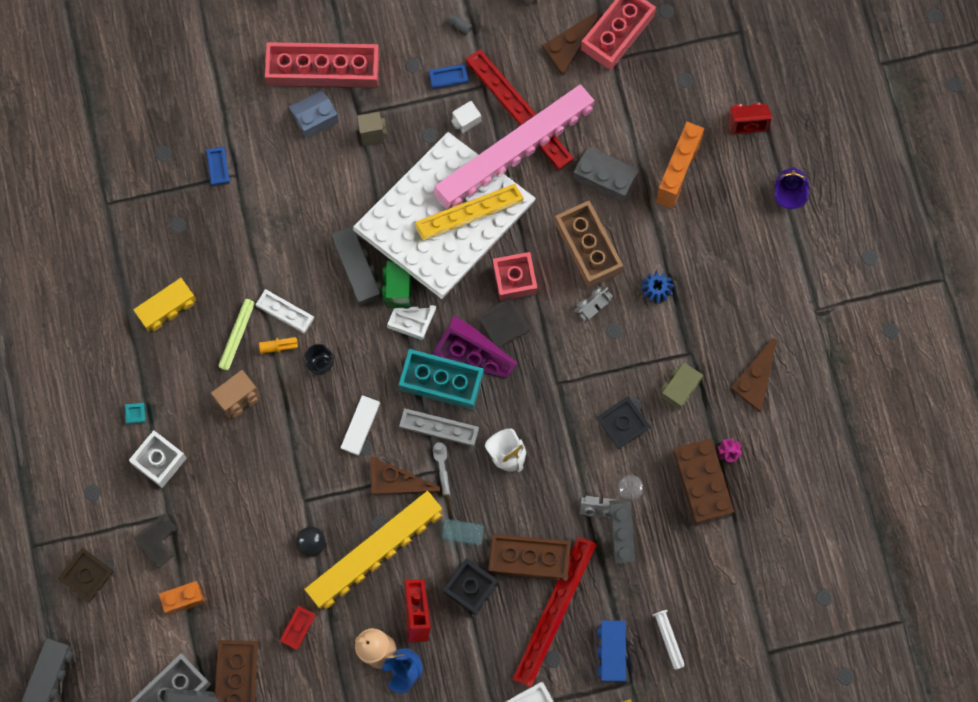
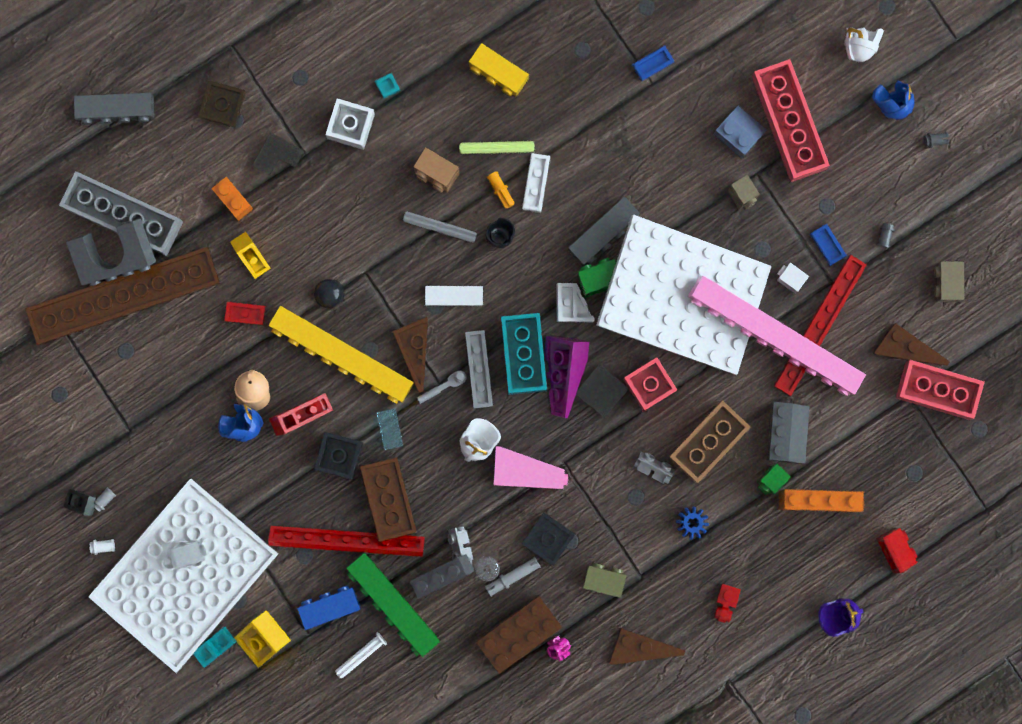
camera: 65 degrees right, 10 degrees up
(243, 601) = (250, 255): none -> yellow slope
(289, 414) = (441, 227): none -> light grey axle
(469, 212) = (693, 317): yellow plate -> none
(550, 423) = (523, 471): none -> bright pink slope
(632, 589) = (393, 604): none -> green brick
(644, 200) = (772, 480): none -> green brick
(648, 477) = (512, 576): none -> light grey pin
(738, 282) = (728, 597): none -> red plate

